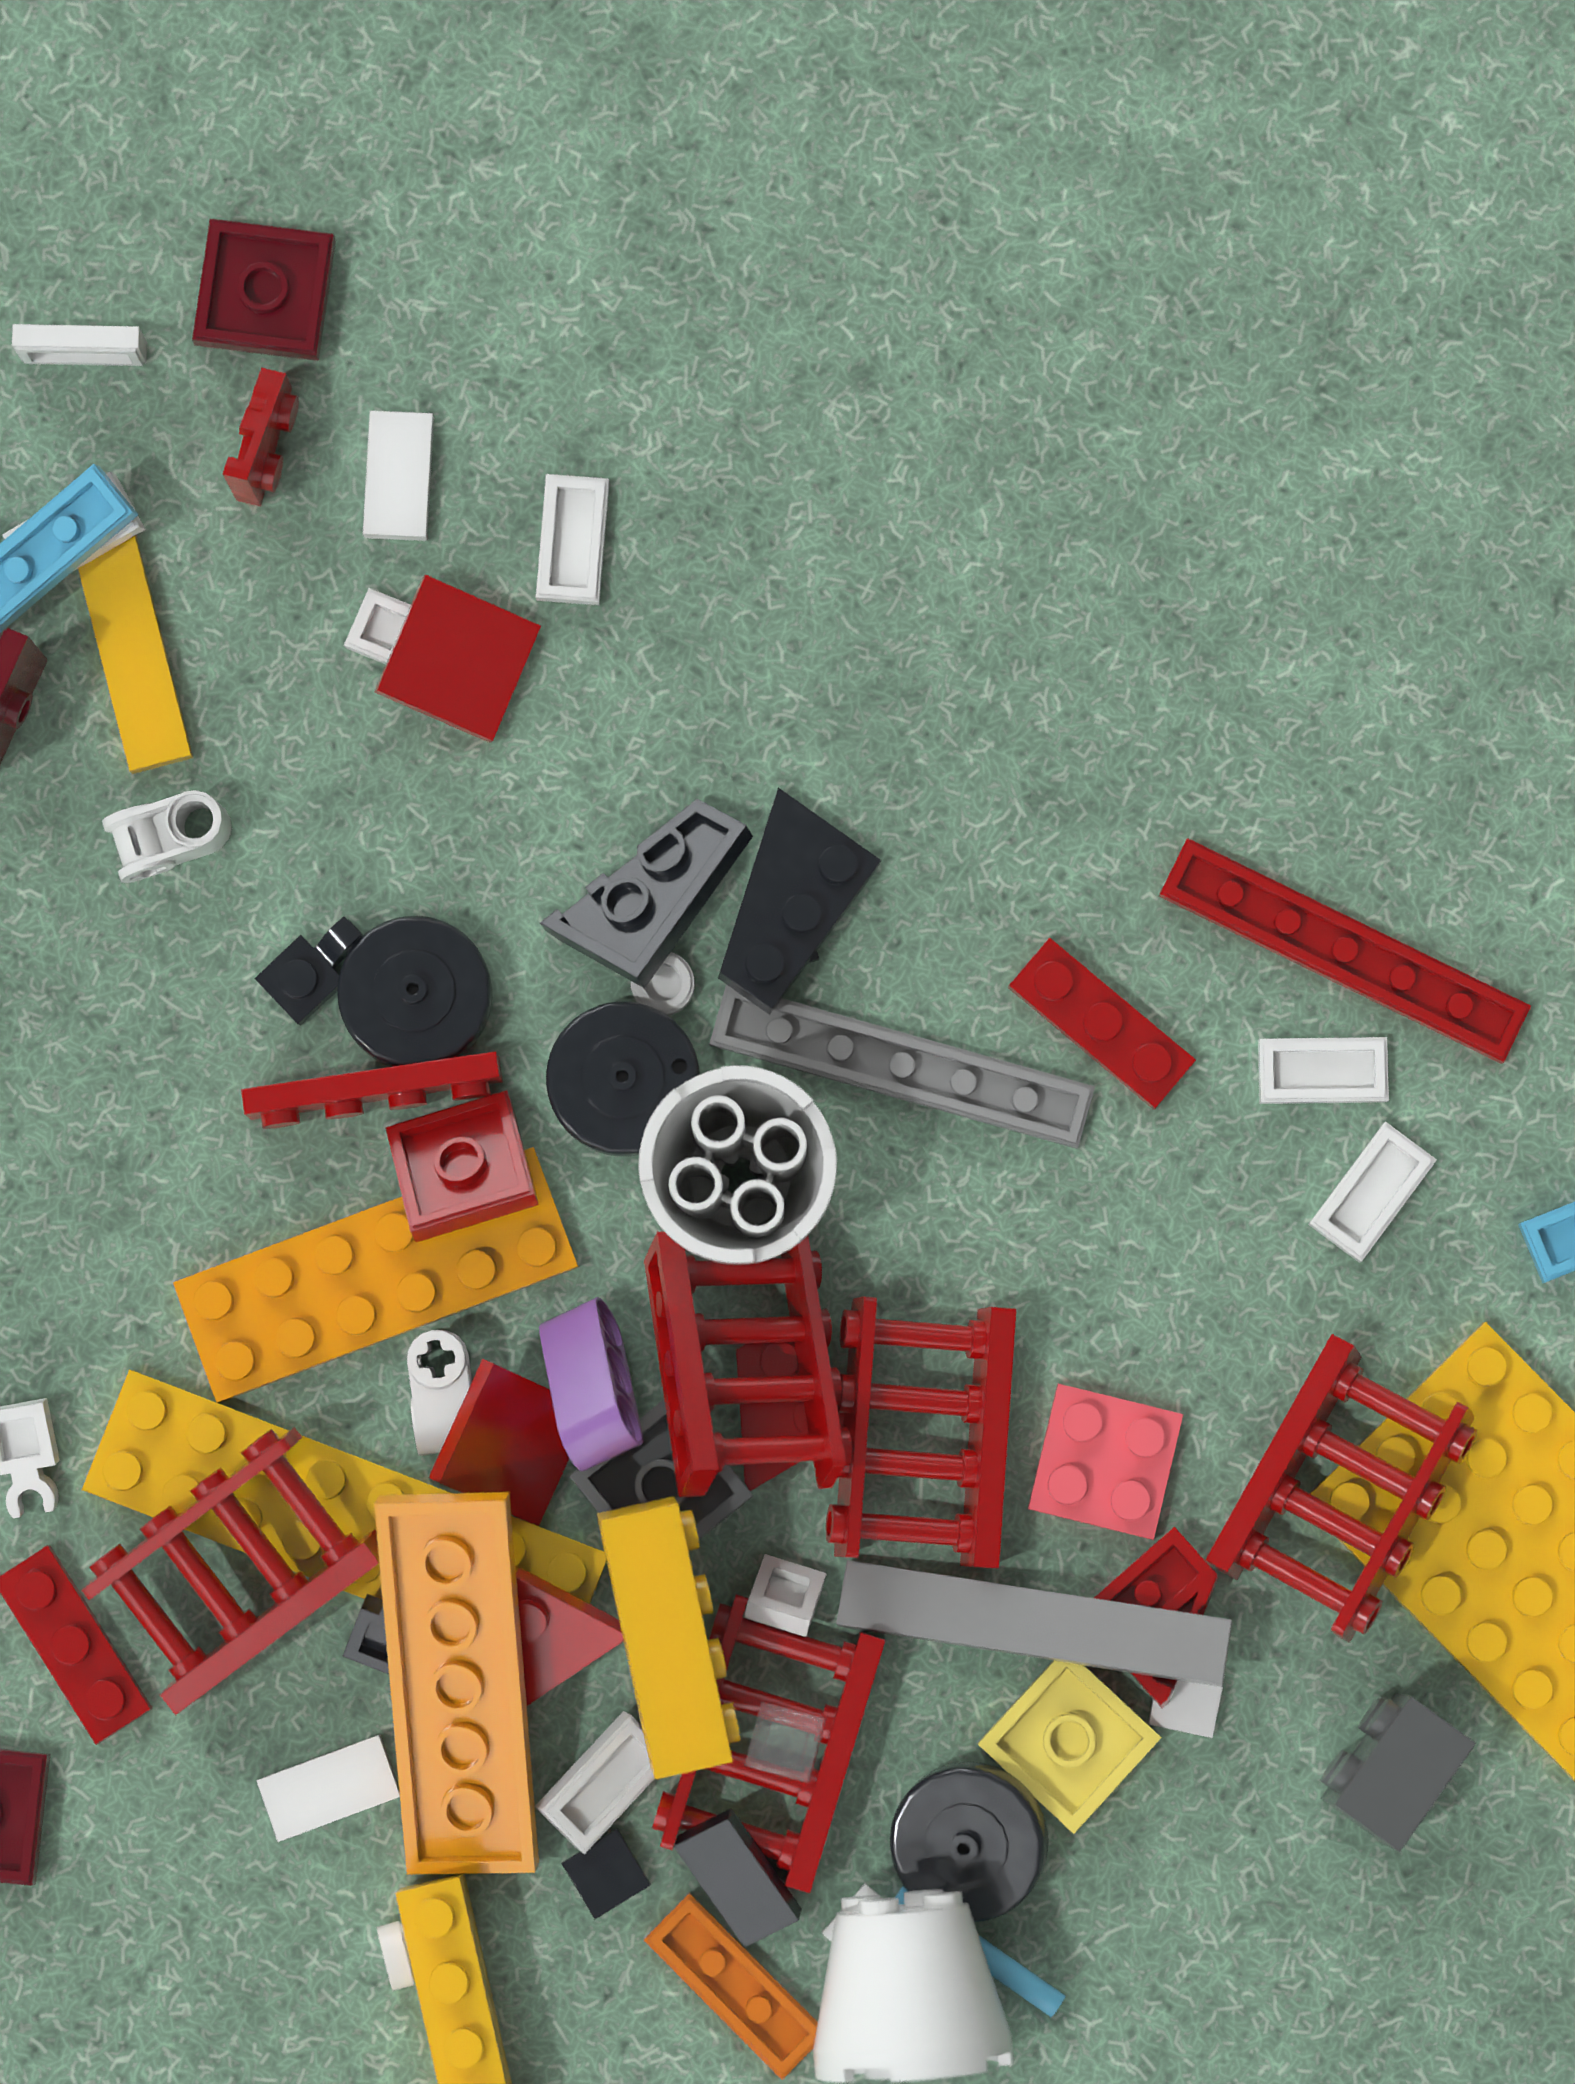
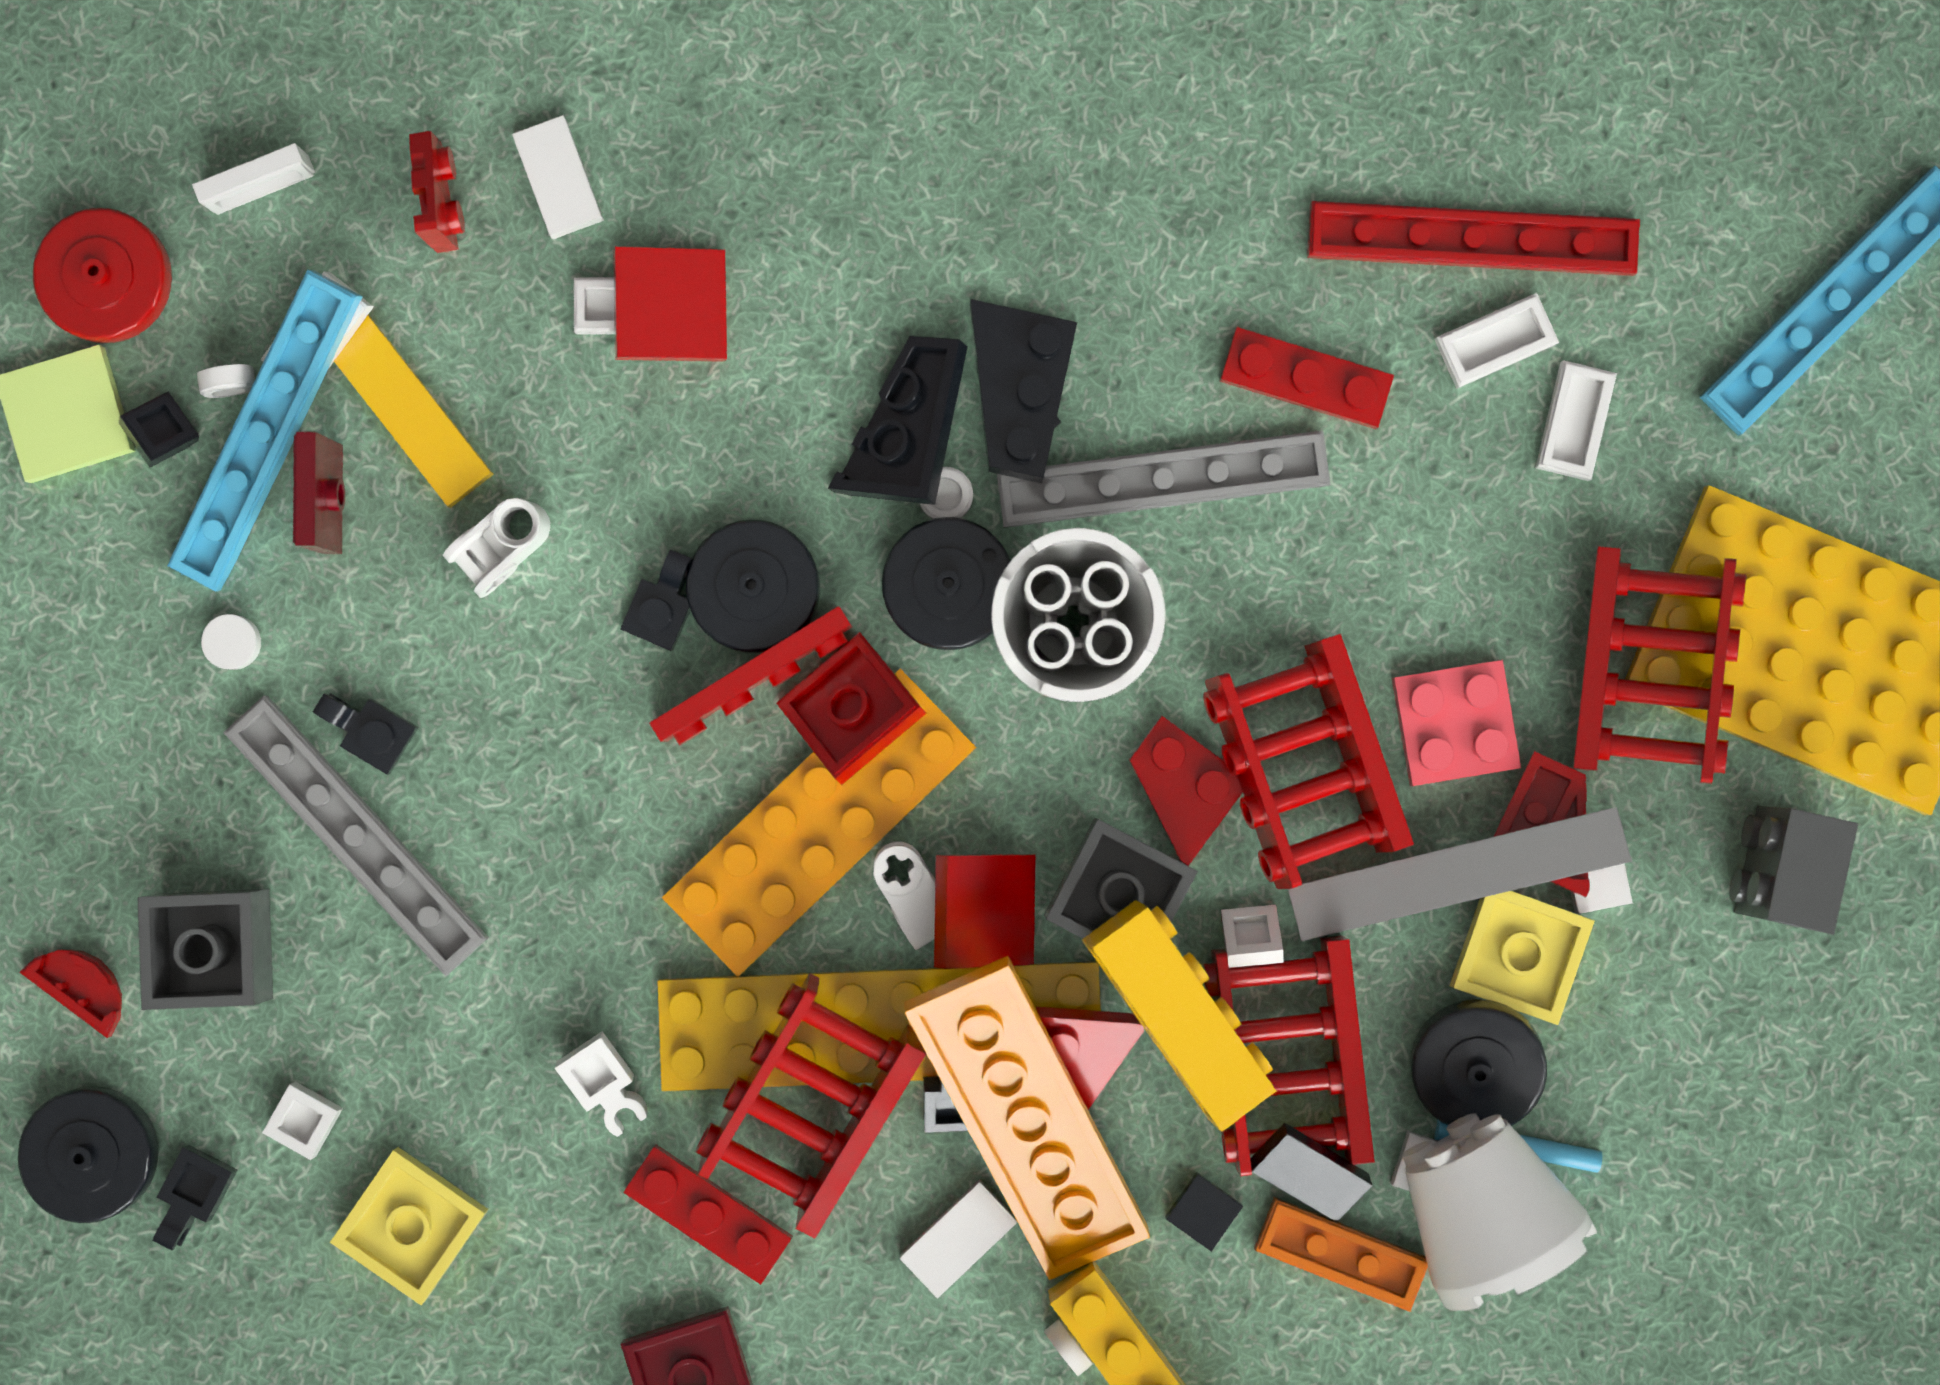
camera: 25 degrees left, 5 degrees up
(264, 289) = (383, 72): dark red plate -> none
(572, 539) = (719, 169): white tile -> none
(590, 1384) = (1030, 839): medium lavender beam -> none
(599, 1784) = (1170, 1145): white tile -> none
(694, 1393) = (1118, 812): red fence -> none
(785, 1742) = (1304, 1052): clear tile -> none

